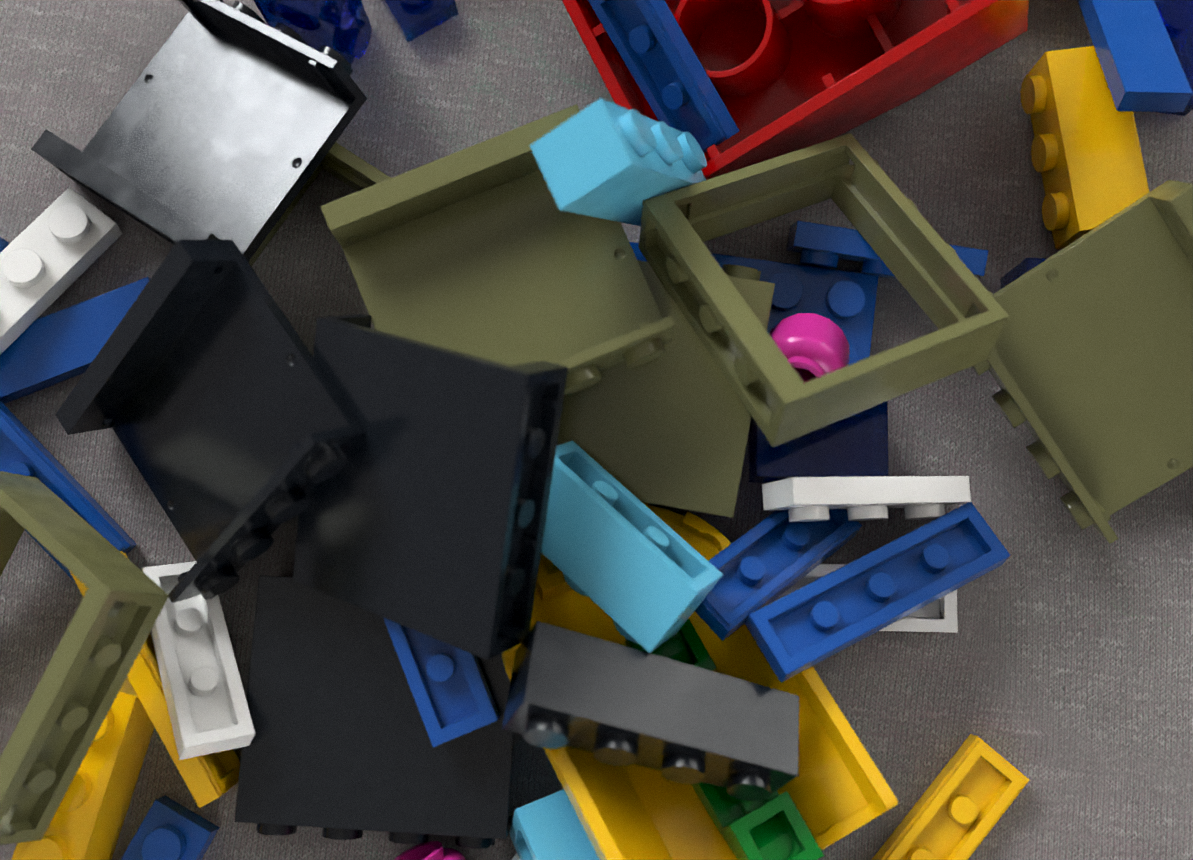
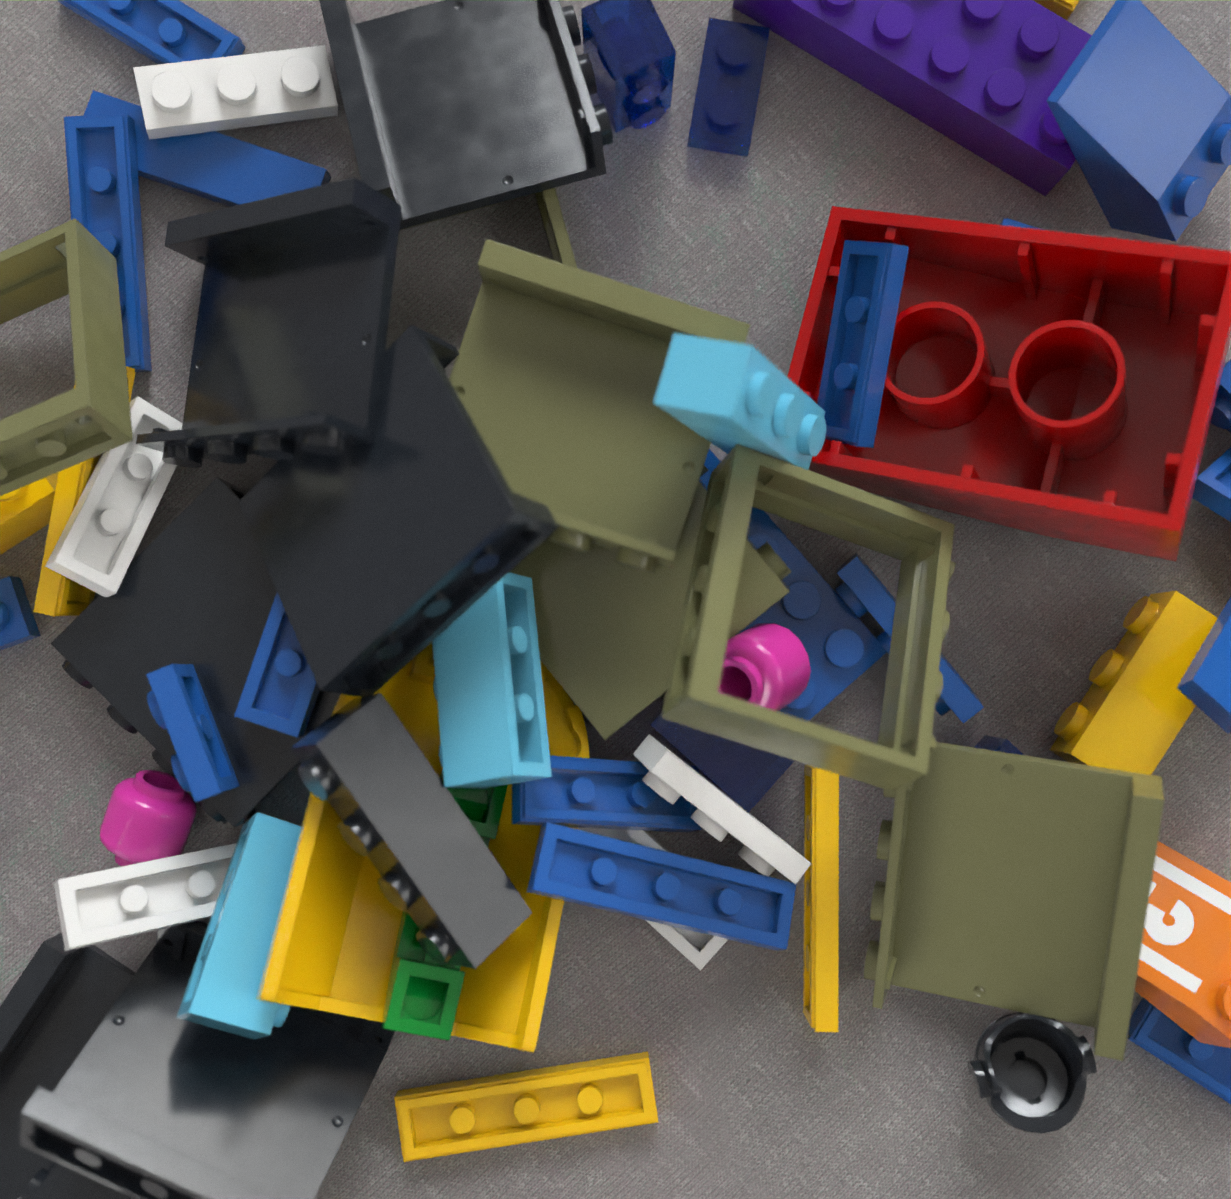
camera: 40 degrees right, 5 degrees up
(383, 777) = (200, 754): none -> blue plate
(996, 497) = (821, 899): none -> yellow tile

